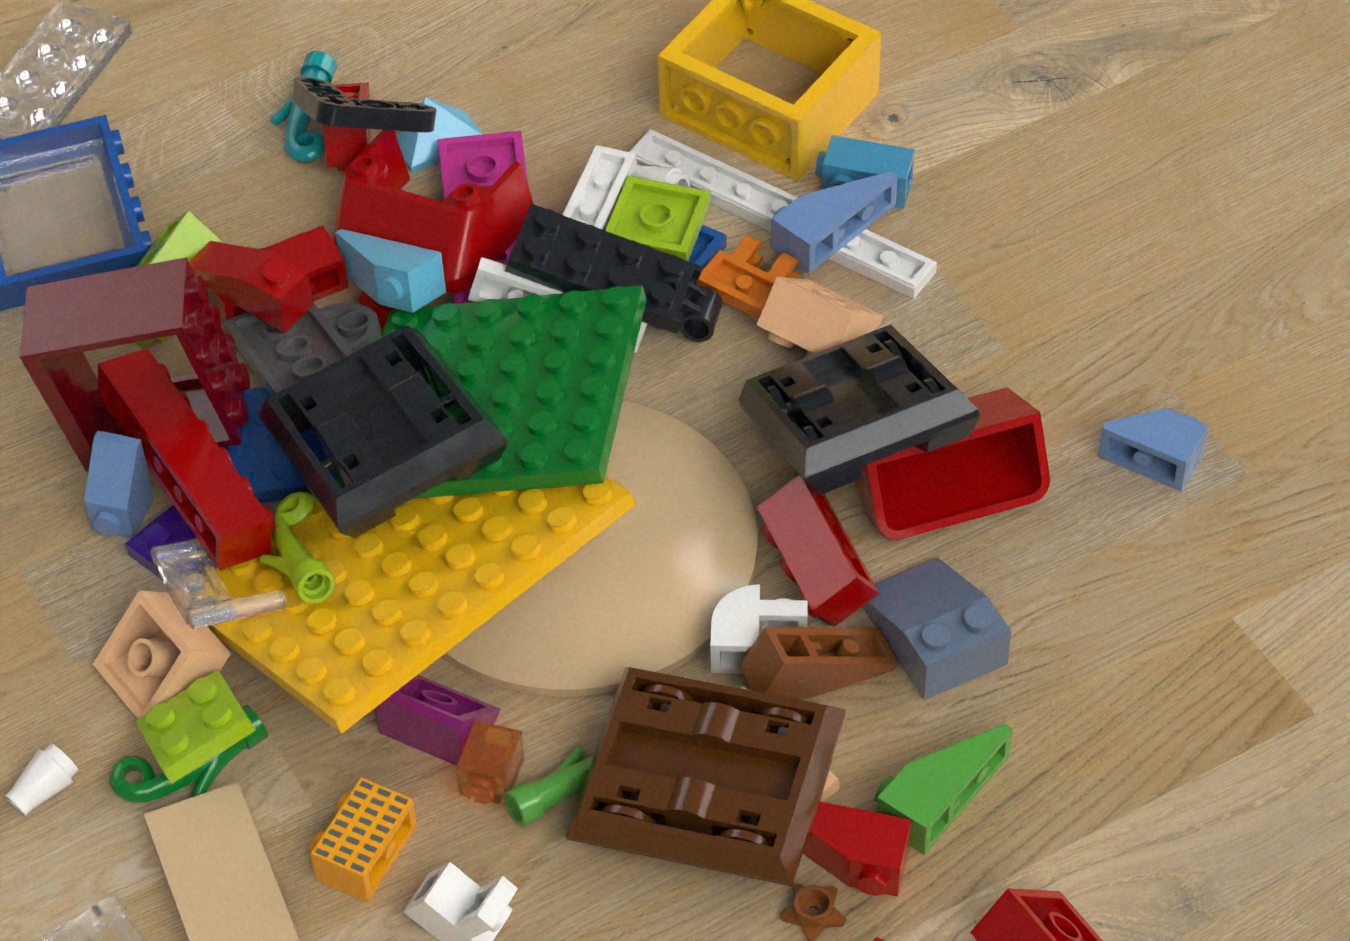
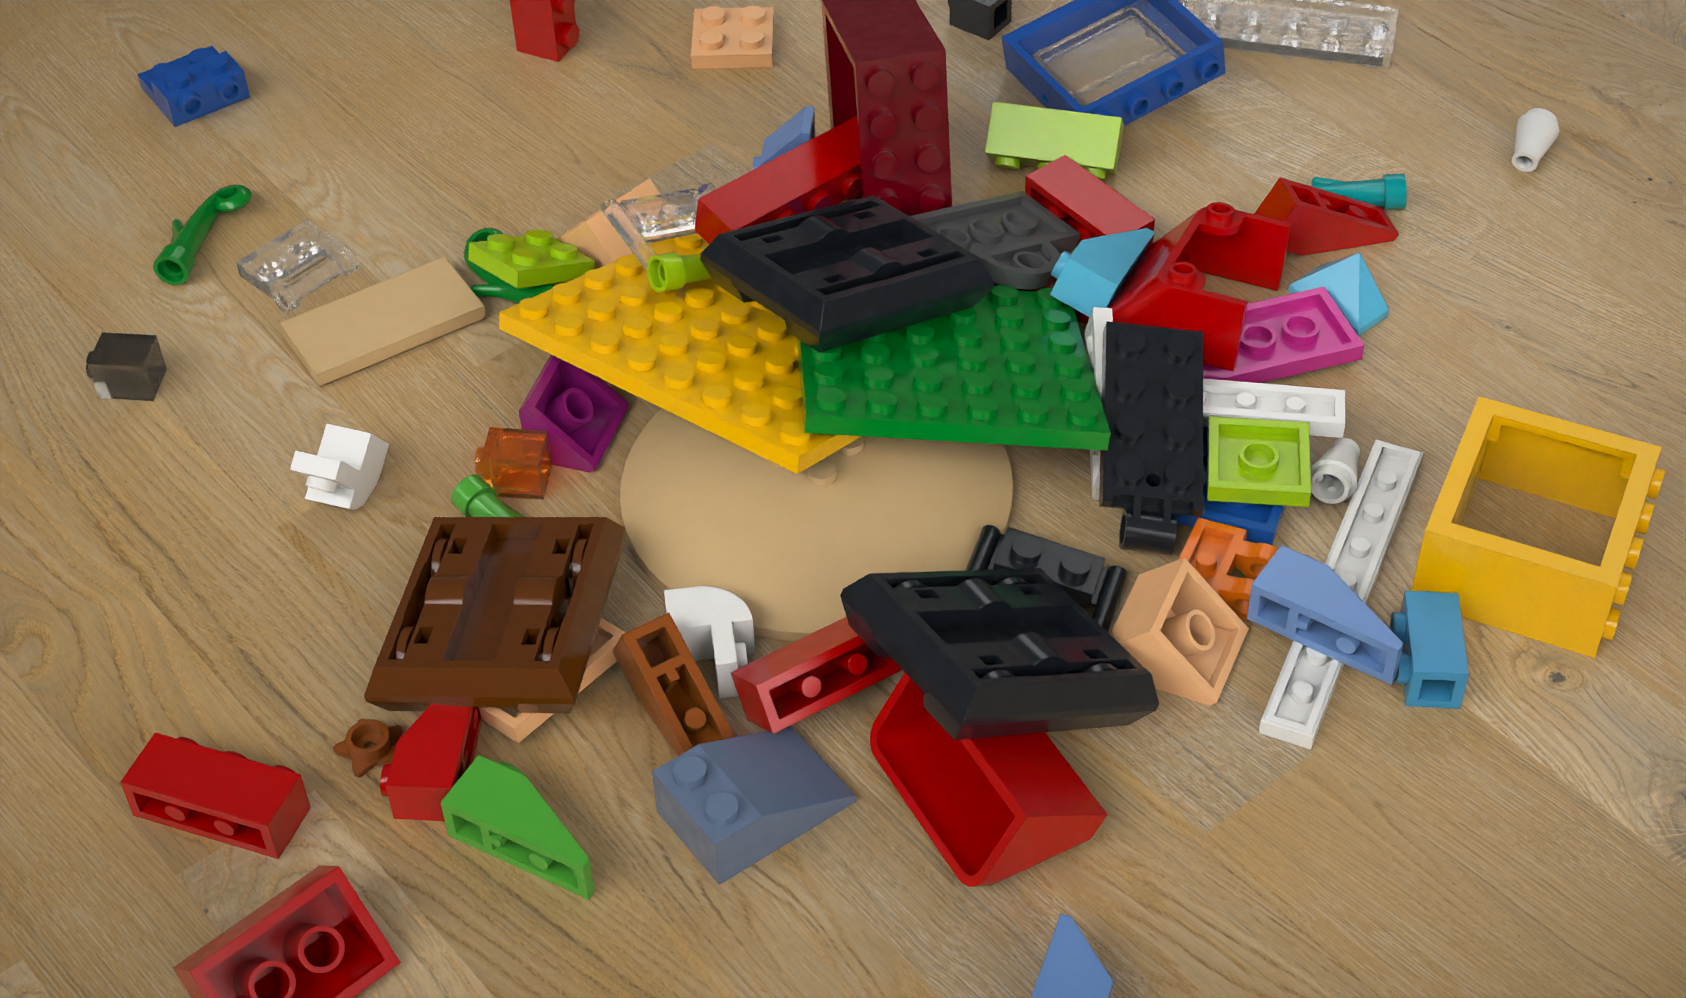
camera: 80 degrees right, 5 degrees down
(42, 778) = (479, 192): white cone -> none
(256, 282) = (1044, 180): red slope -> none
(333, 108) = (1285, 178): black beam -> none
(363, 839) = (421, 393): light orange brick -> none
(719, 393) = (1074, 570): none -> black plate

